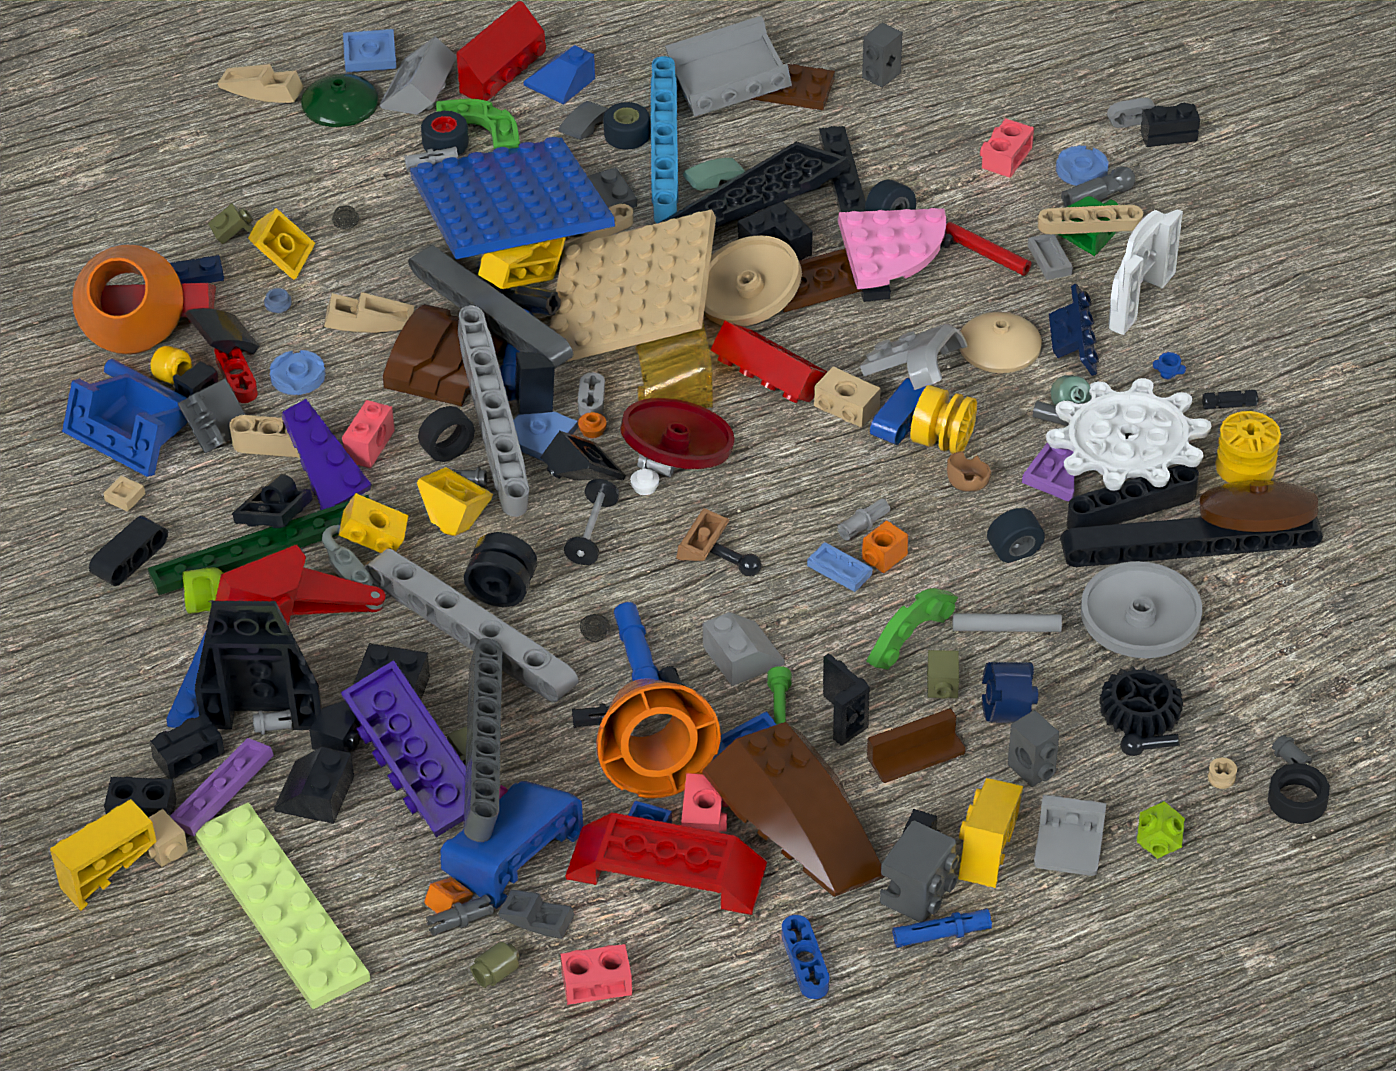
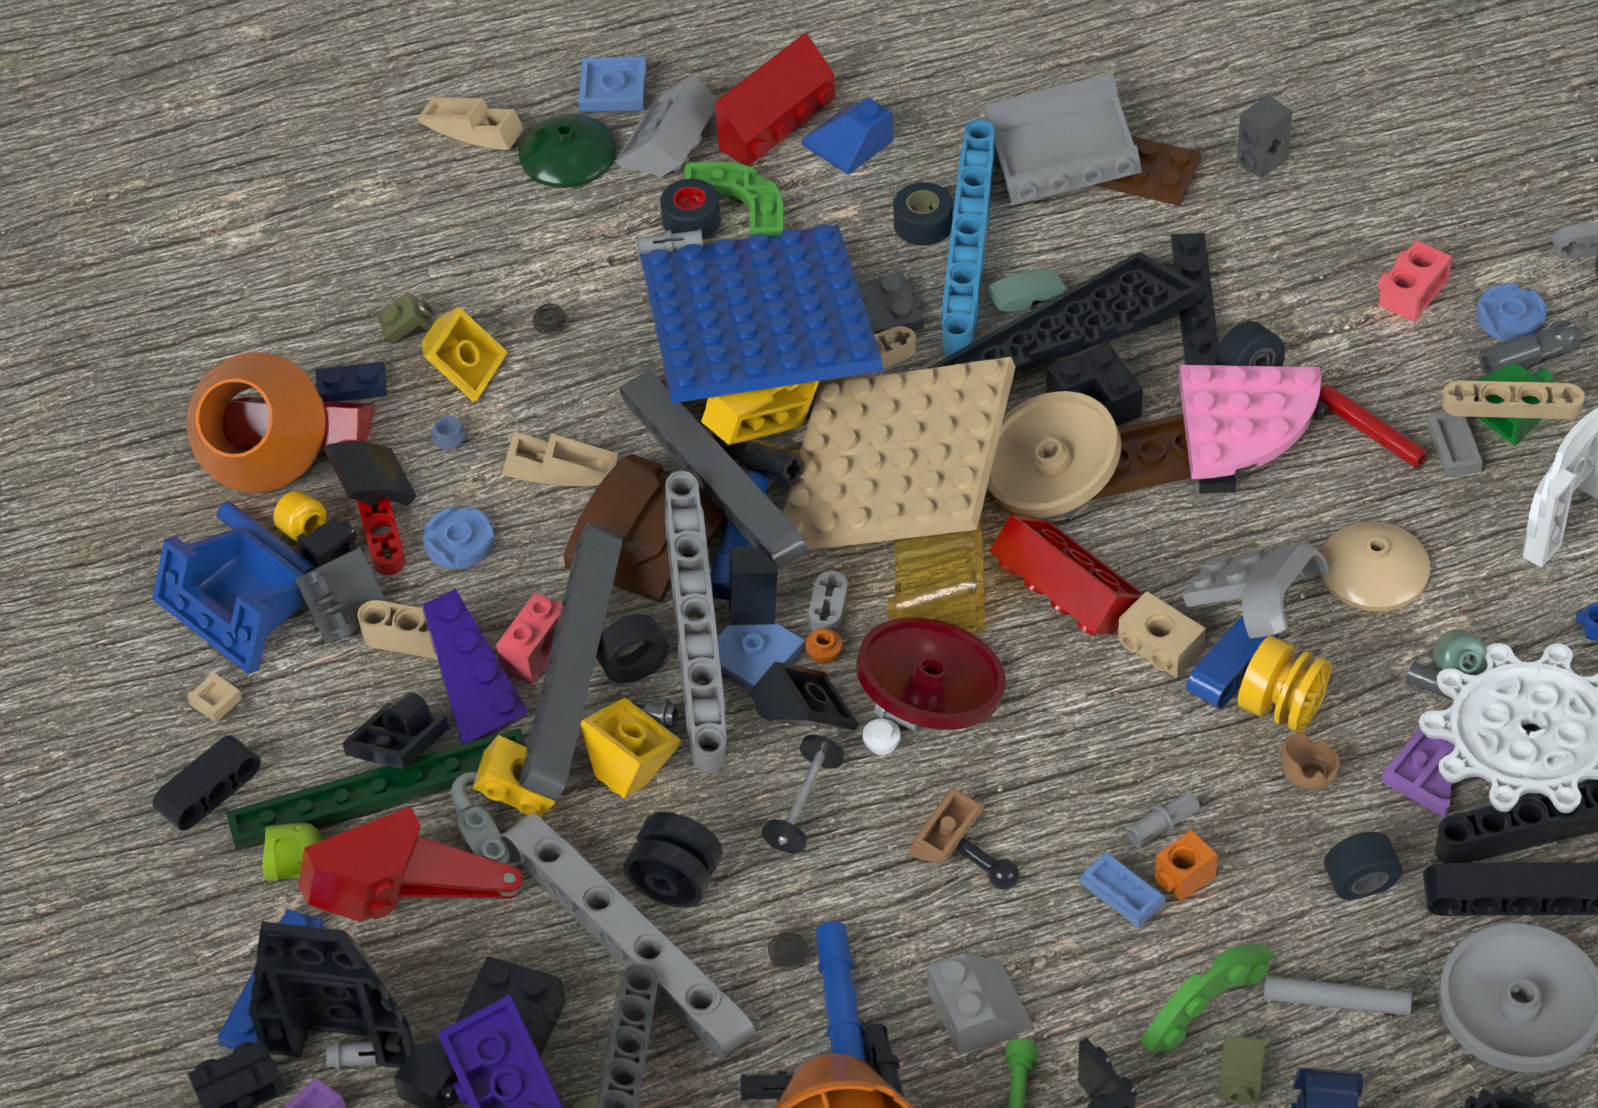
camera: 10 degrees right, 5 degrees up
(403, 442) = (571, 663): none -> dark grey beam
(582, 120) = (867, 201): dark grey slope -> none
(1073, 330) = (1473, 558): dark blue bracket -> none

